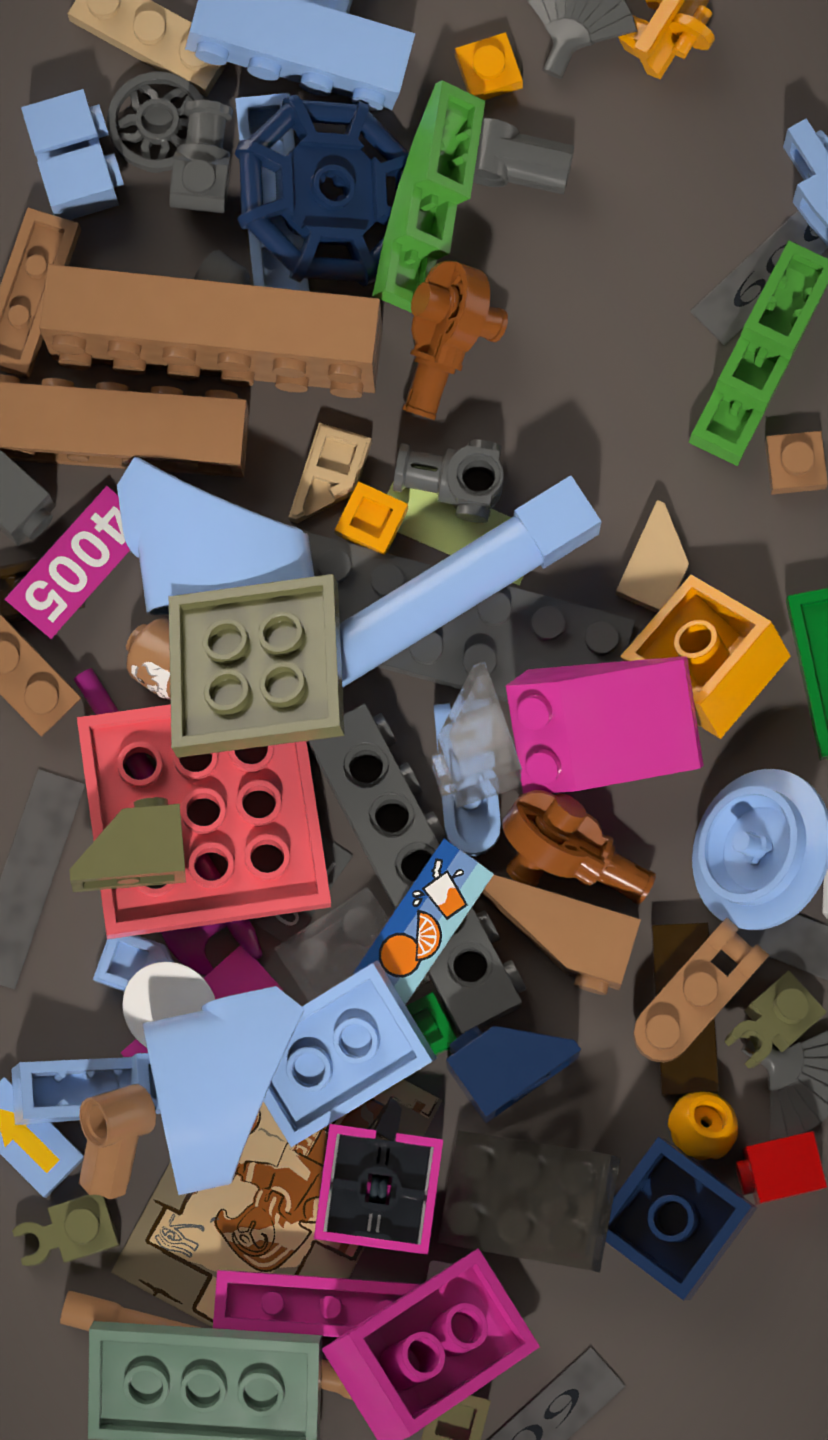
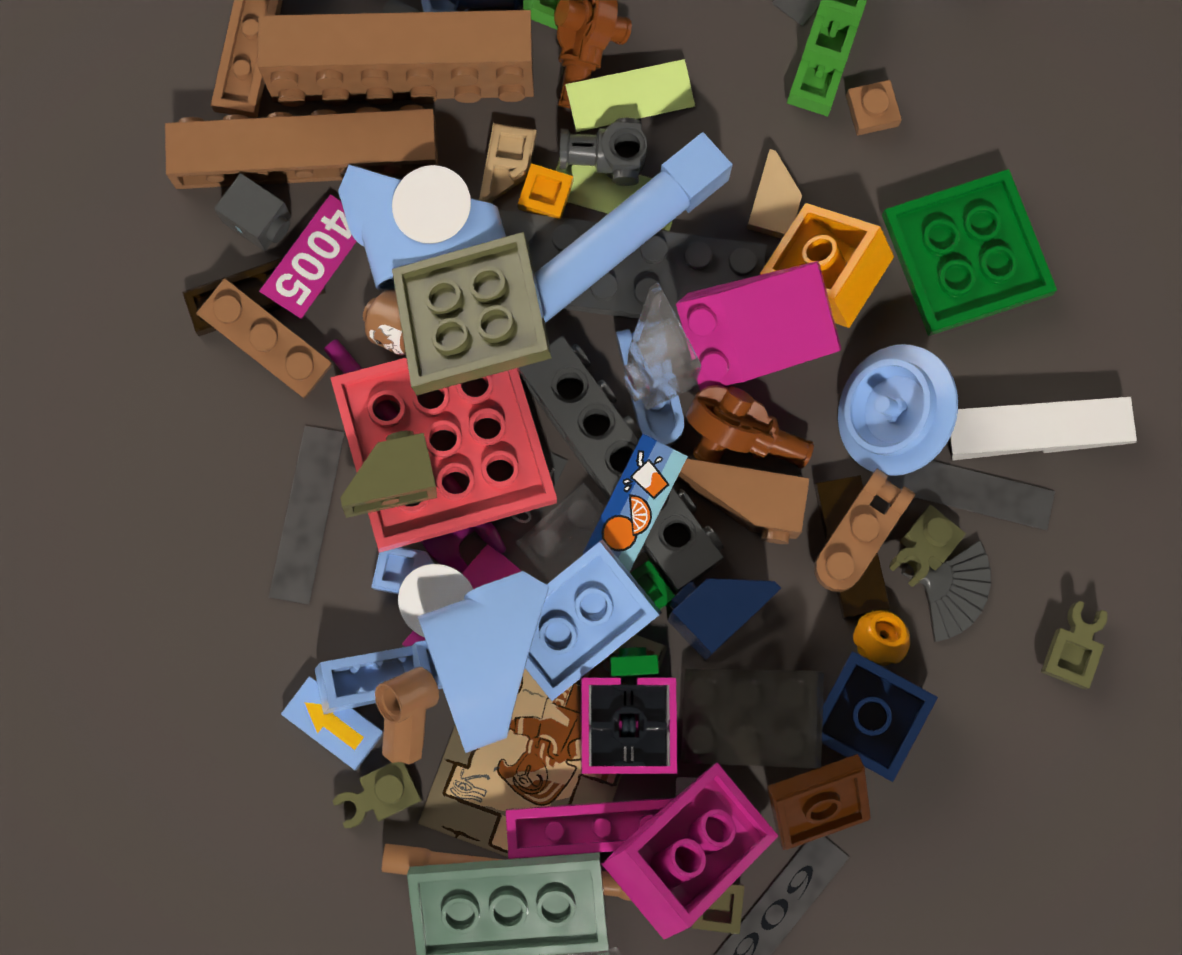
camera: 15 degrees left, 0 degrees up
(226, 523) = (431, 204): none -> white sticker
(396, 1115) = (634, 663): none -> green plate
(494, 409) = (630, 95): none -> yellowish green sticker
(594, 1313) = (820, 802): none -> reddish brown tile
(781, 1168) = (950, 663): red brick -> none

